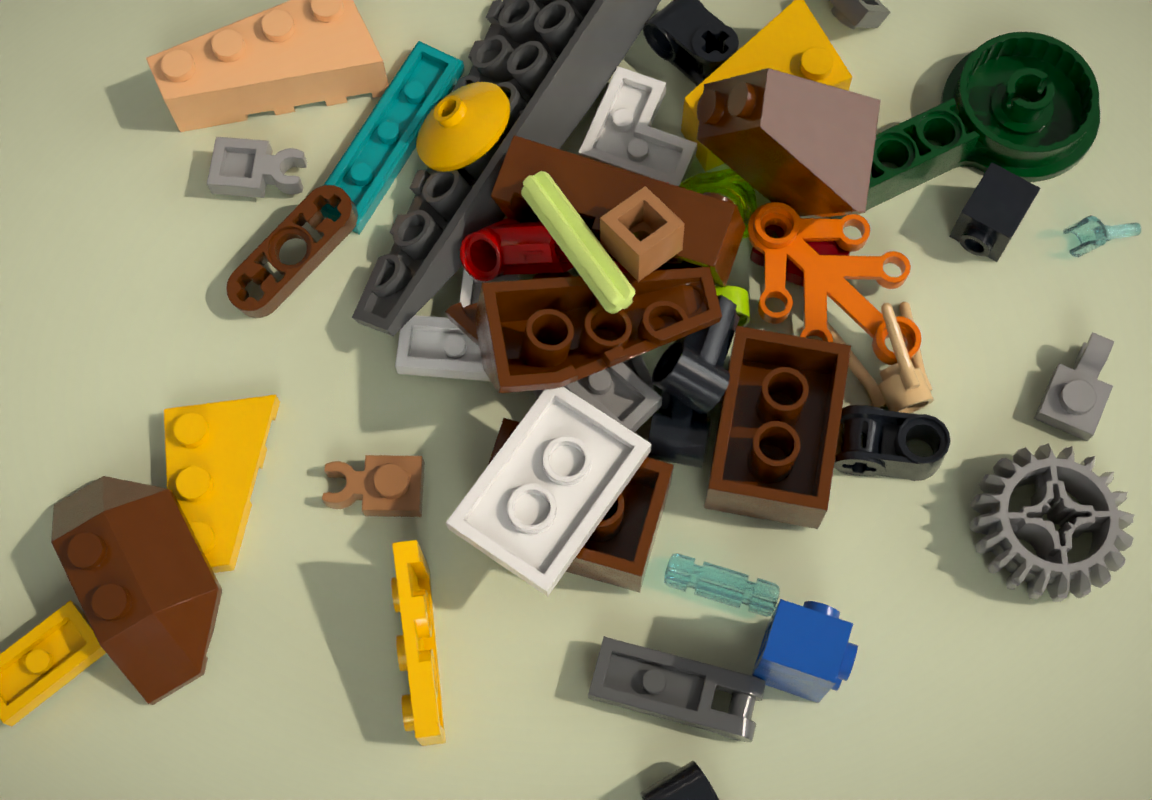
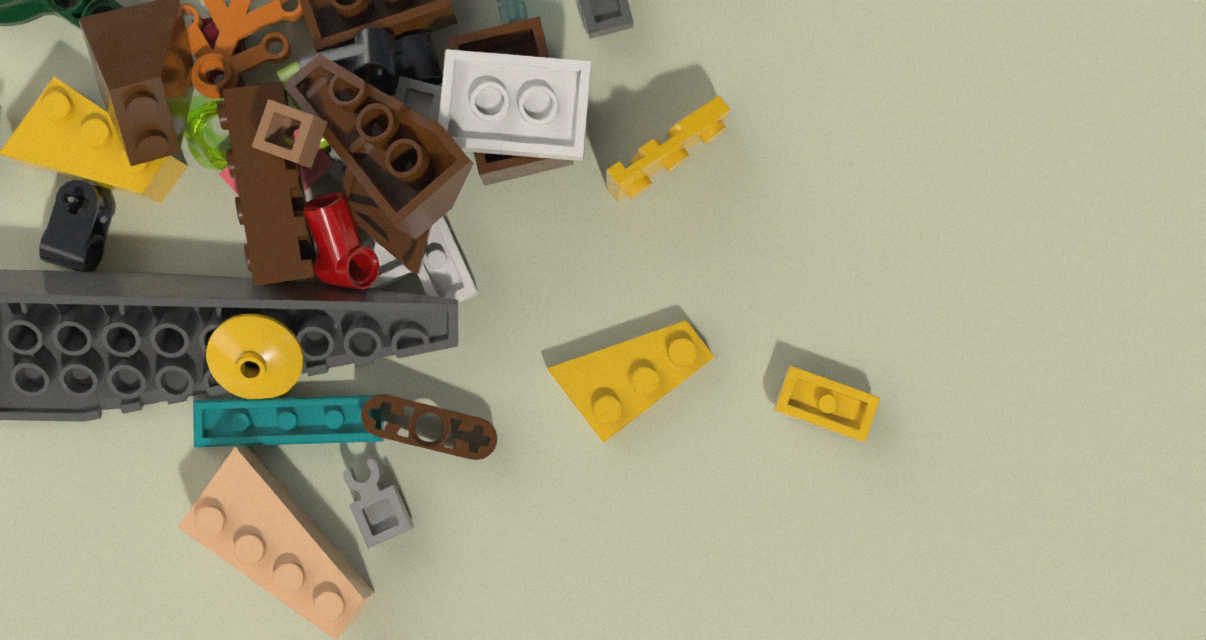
camera: 120 degrees left, 15 degrees up
(139, 581) = (729, 377): reddish brown wedge -> none
(386, 486) = (567, 249): medium nougat plate -> none
(578, 242) = (320, 180): yellowish green axle -> none
(624, 135) = (197, 235): white plate -> none

